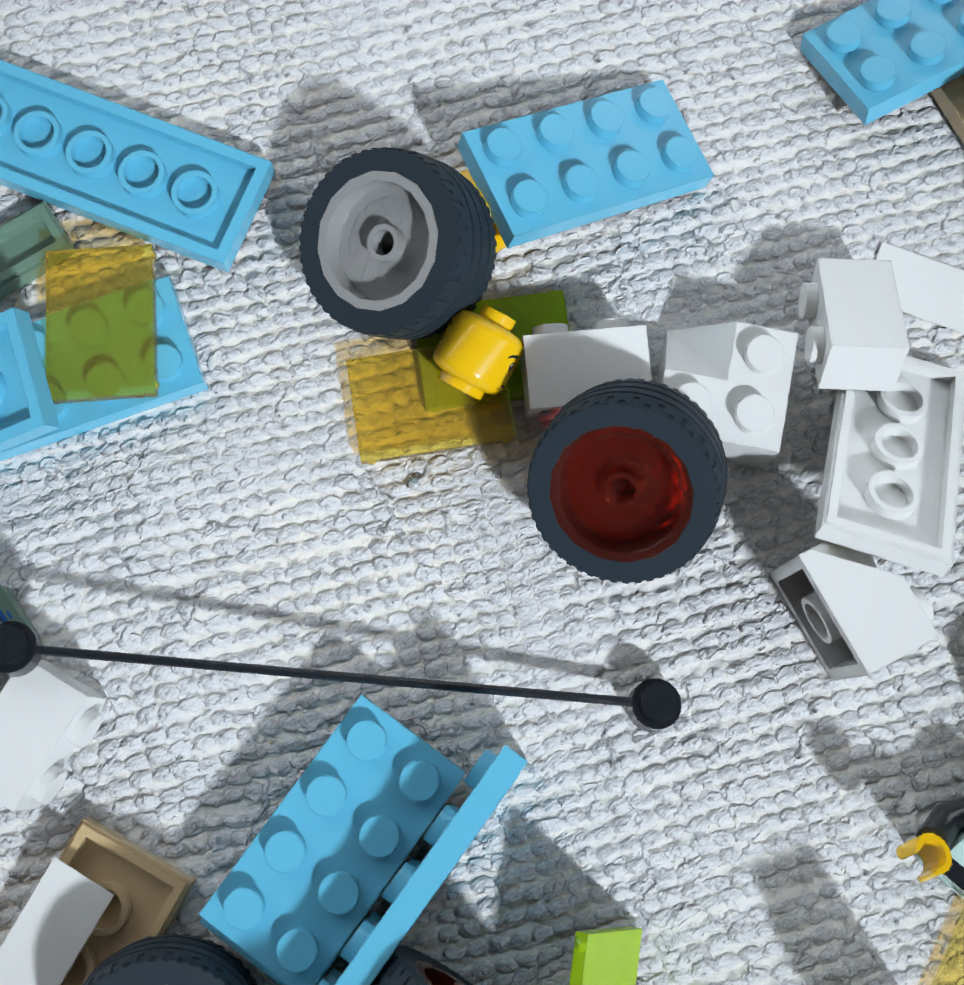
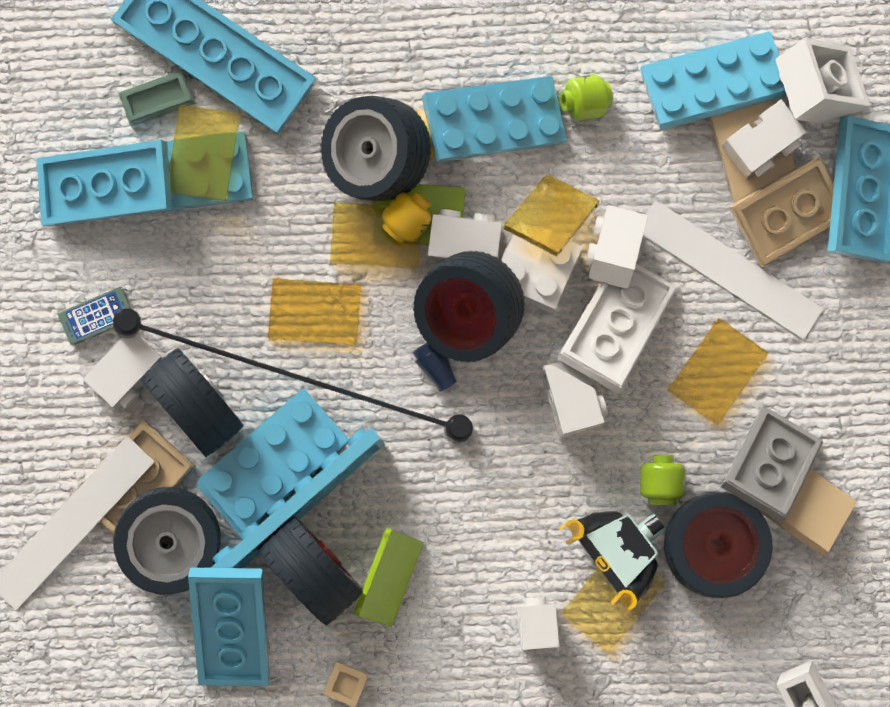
camera: 10 degrees right, 5 degrees up
(153, 774) = (192, 401): none -> black wheel
(352, 554) = (314, 311): none -> clear yellow piece
(586, 602) = (434, 366): none -> dark blue cone
(726, 296) = (551, 215): none -> clear yellow piece
(730, 98) = (586, 97): none -> lime head

